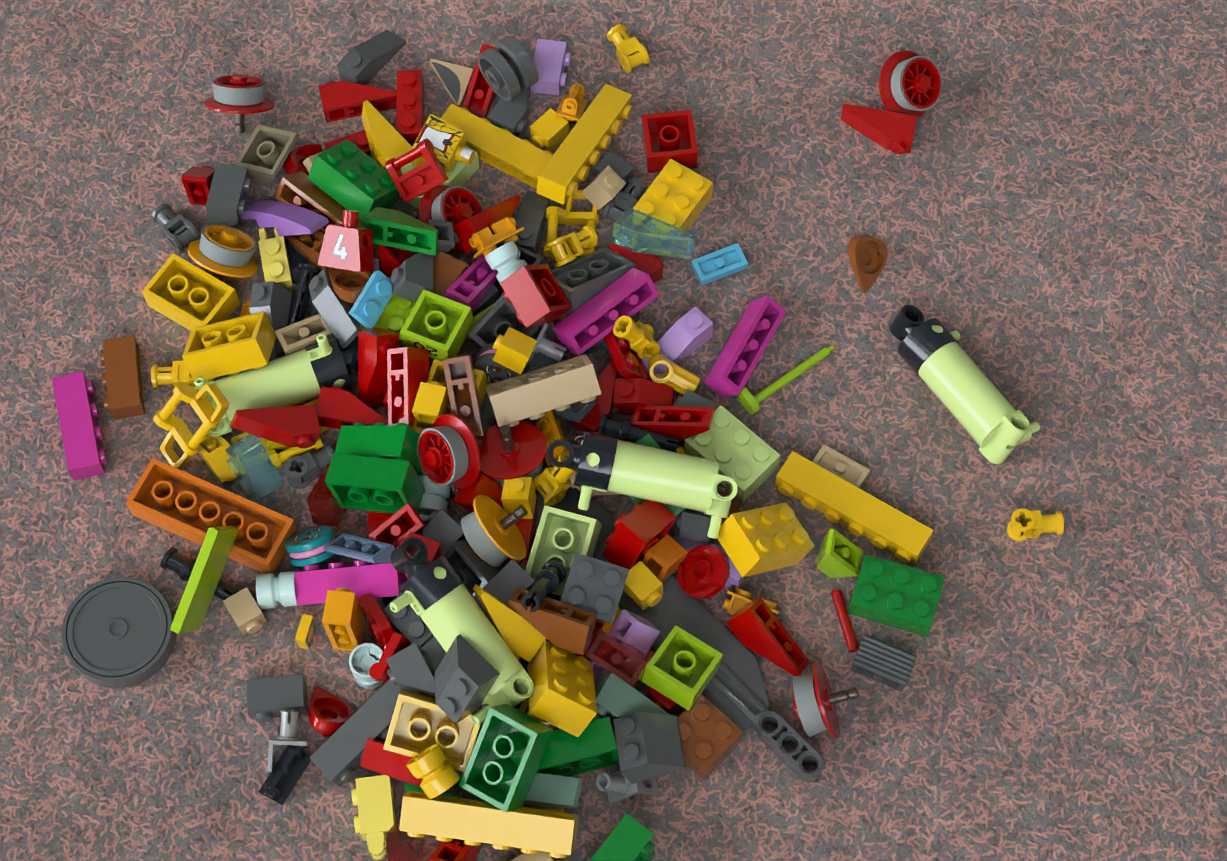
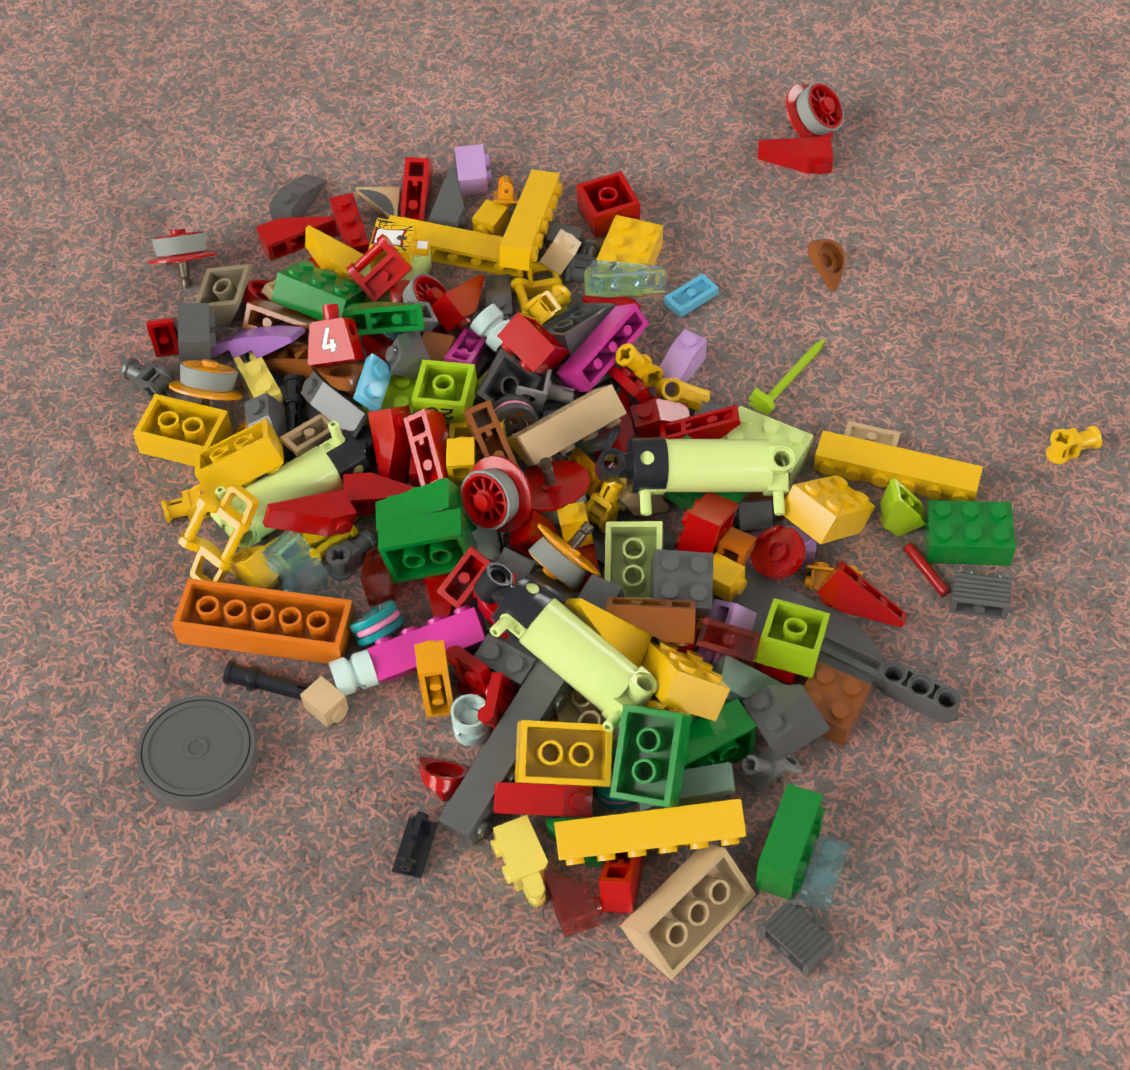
camera: 15 degrees left, 10 degrees down
(79, 425) = (99, 572): dark pink brick -> none
(122, 377) = (132, 519): dark orange brick -> none
(204, 579) = (277, 672): lime tile -> none
(272, 694) = (383, 774): dark grey brick -> none
(287, 735) = (407, 804): light grey bracket -> none
(305, 631) = (394, 705): yellow tile -> none
(361, 548) = (436, 604): sand blue slope -> none
(412, 670) = (526, 701): dark grey slope -> none
(431, 768) = (579, 788): yellow wheel -> none
(463, 680) = (584, 687): dark grey slope -> none
(504, 233) = (466, 312): light orange hinge -> none
(507, 68) = (438, 168): dark grey wheel -> none
(513, 350) = (527, 394): yellow brick -> none
(545, 583) = (633, 586): black pin -> none
(628, 49) = (542, 143): yellow connector -> none
(745, 347) = (743, 355): dark pink brick -> none
(816, 702) = (933, 642): piece -> none
(960, 384) = (958, 340): yellowish green piece -> none

